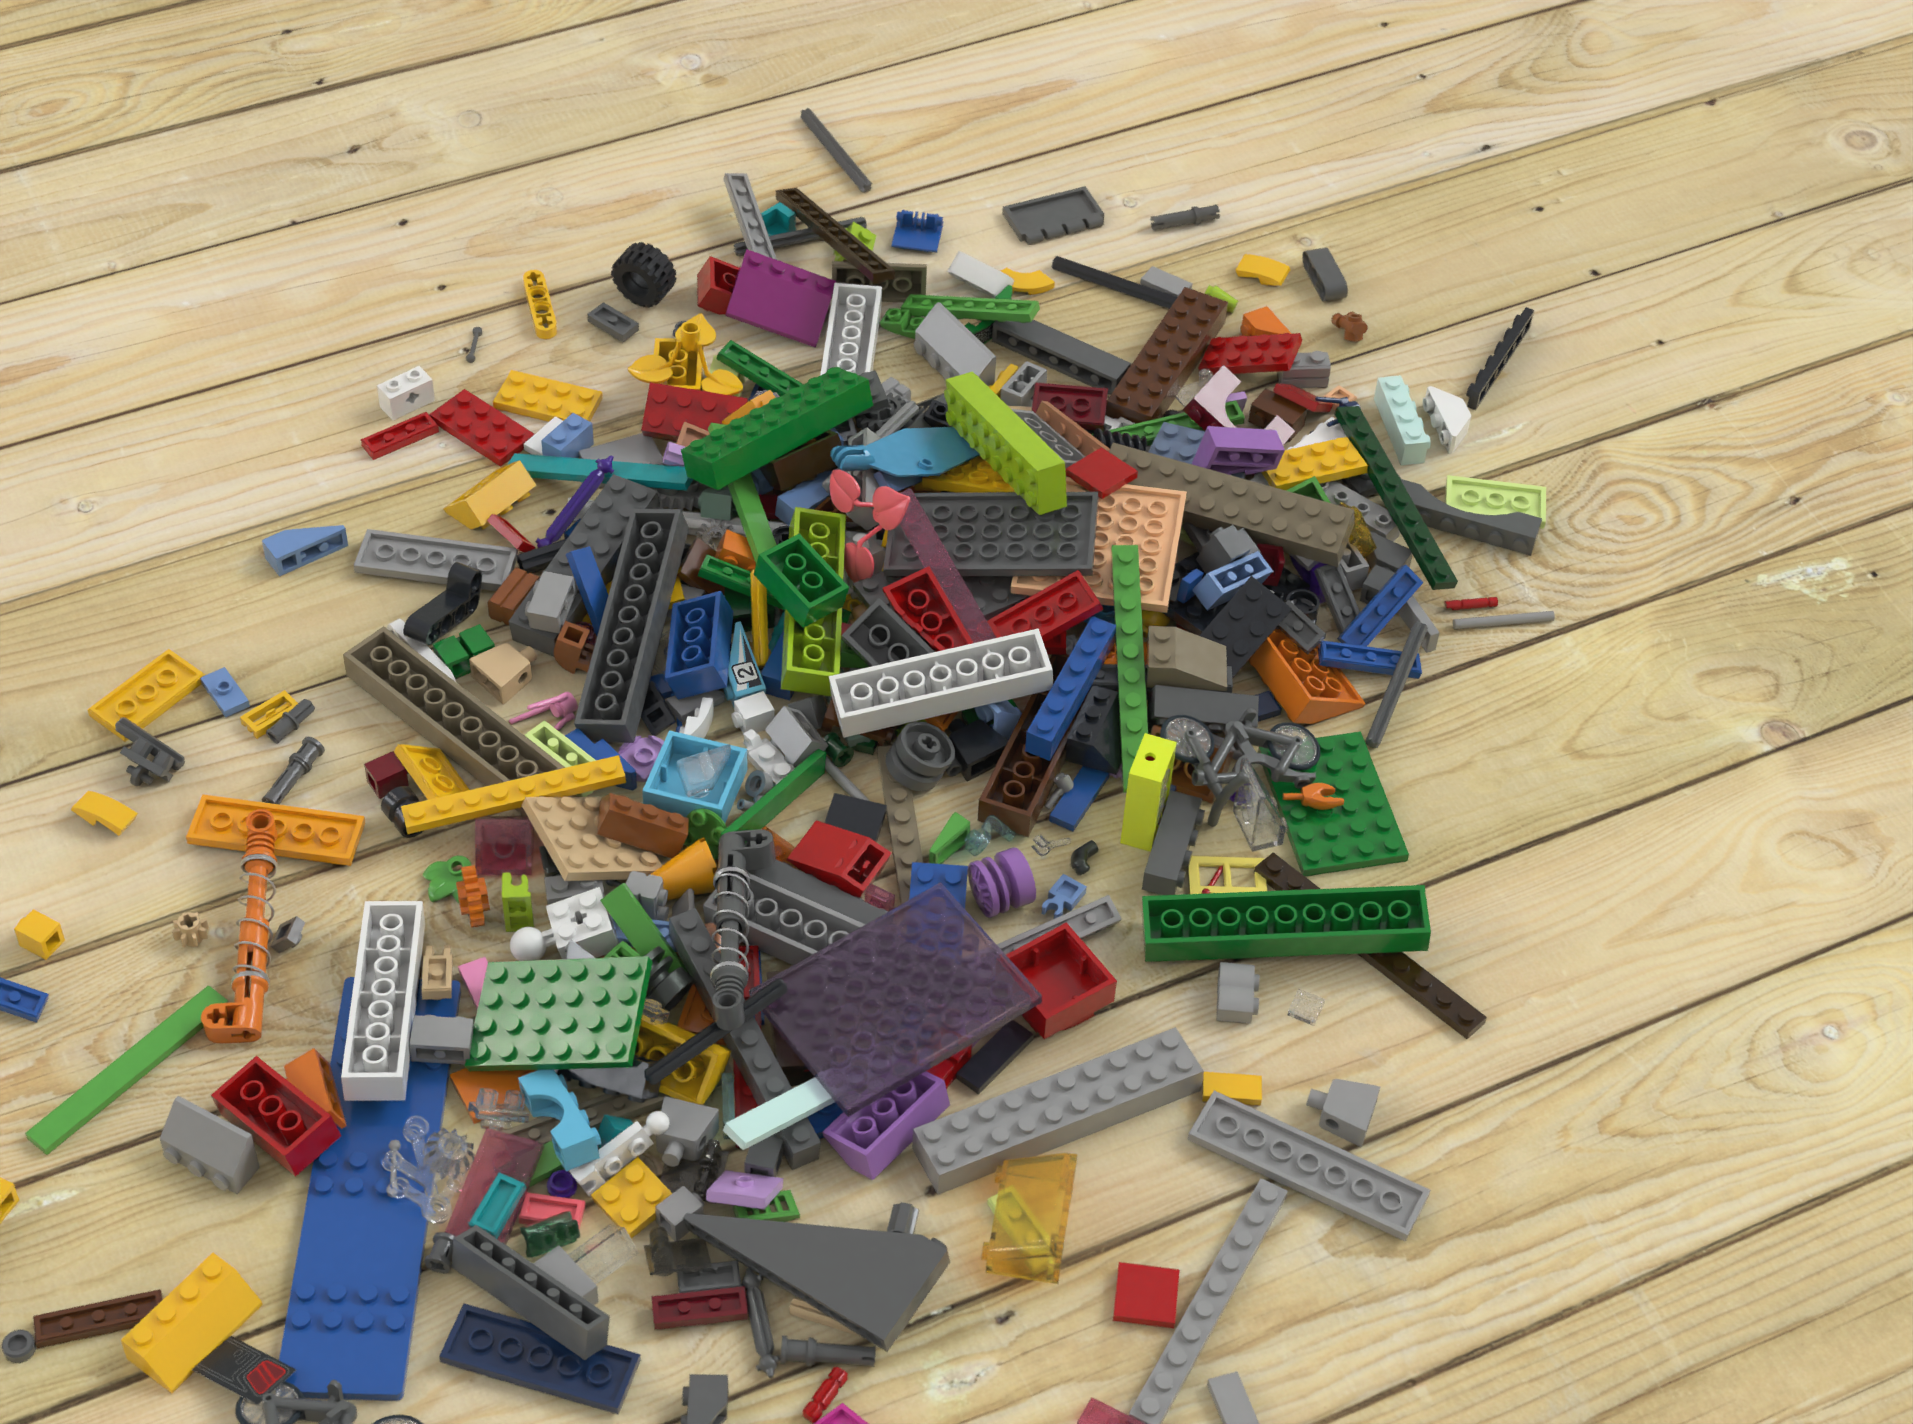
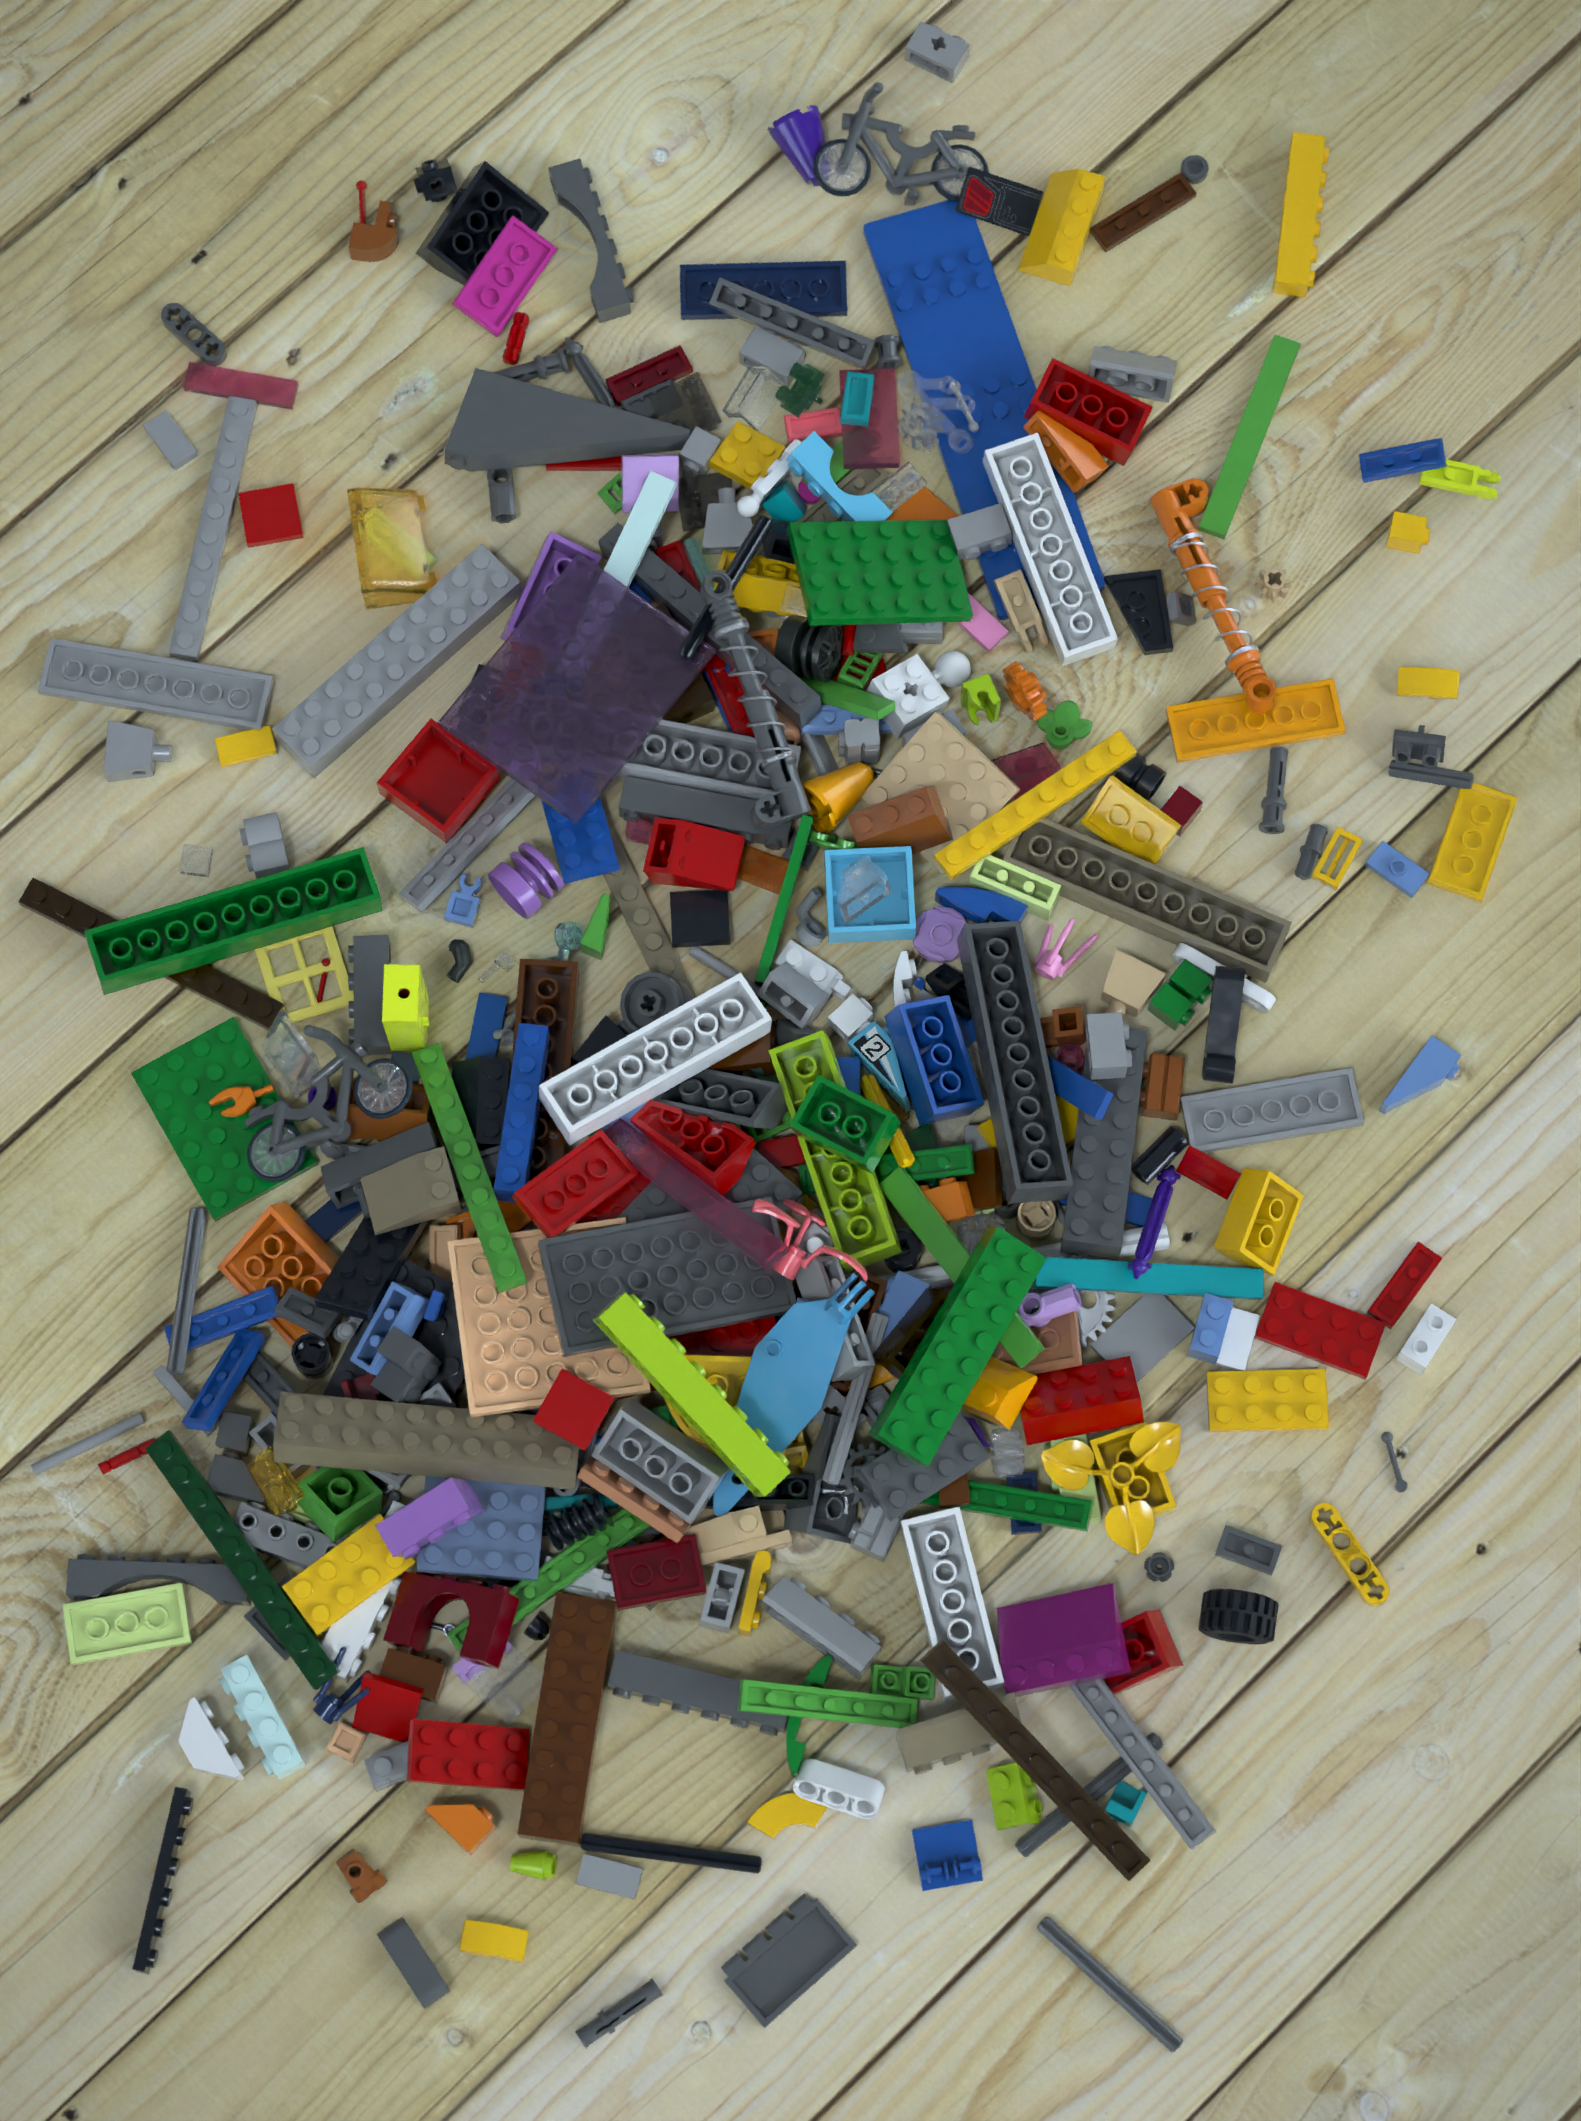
camera: 165 degrees right, 25 degrees up
(321, 948) = (1144, 608): none -> black wing

